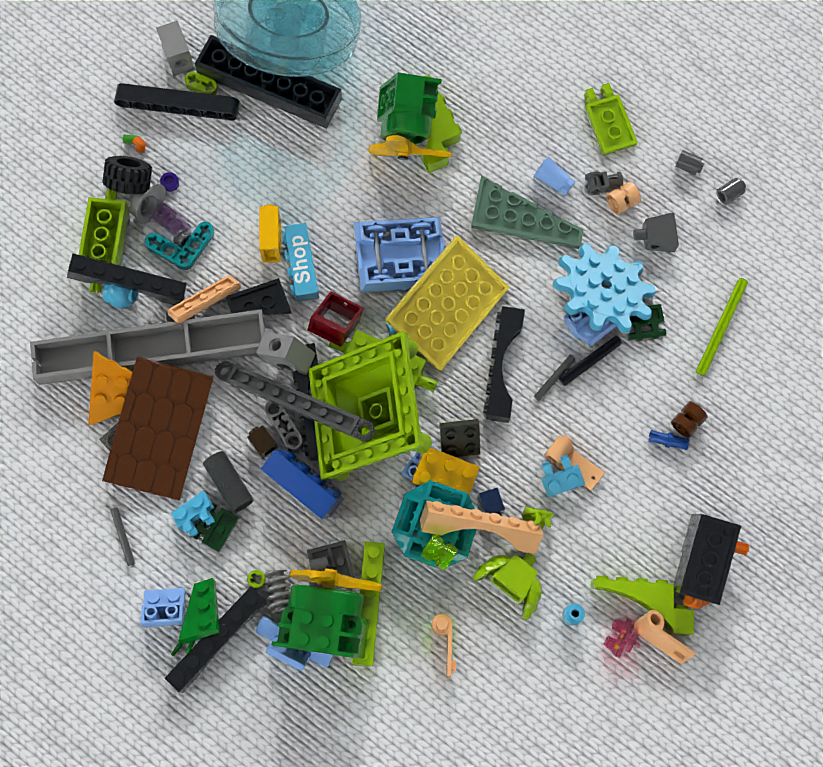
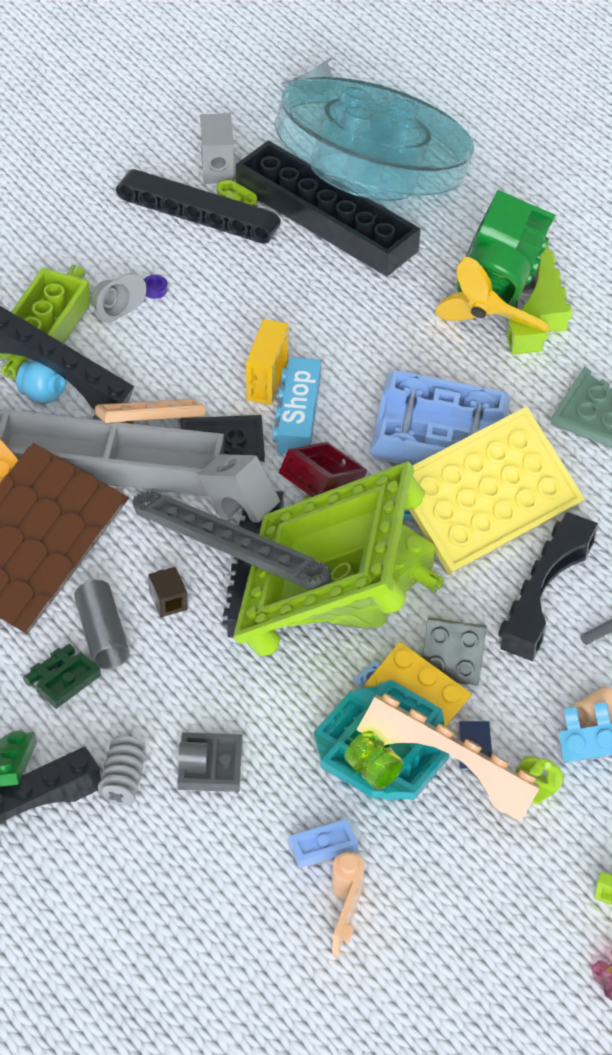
camera: 20 degrees right, 25 degrees down
(127, 175) = (101, 255): black tyre -> none
(137, 141) = (127, 234): orange arm -> none
(170, 219) = (139, 326): clear purple plate -> none
(179, 252) = (143, 368): teal beam -> none
(181, 237) = (147, 345): dark grey bush -> none
(191, 511) = (29, 648): medium azure plate -> none
(258, 573) = (100, 746): lime bush -> none
(286, 438) = (209, 597): light grey beam -> none
(293, 657) = (118, 845): light blue bracket -> none
(302, 483) = (207, 645): blue piece -> none
(325, 617) = (177, 793): green brick -> none
(371, 571) = (247, 823): lime brick -> none
(418, 603) = (323, 843): none -> light blue plate
(515, 578) = (476, 843): lime torso -> none
(569, 619) = (555, 914): medium azure brick -> none

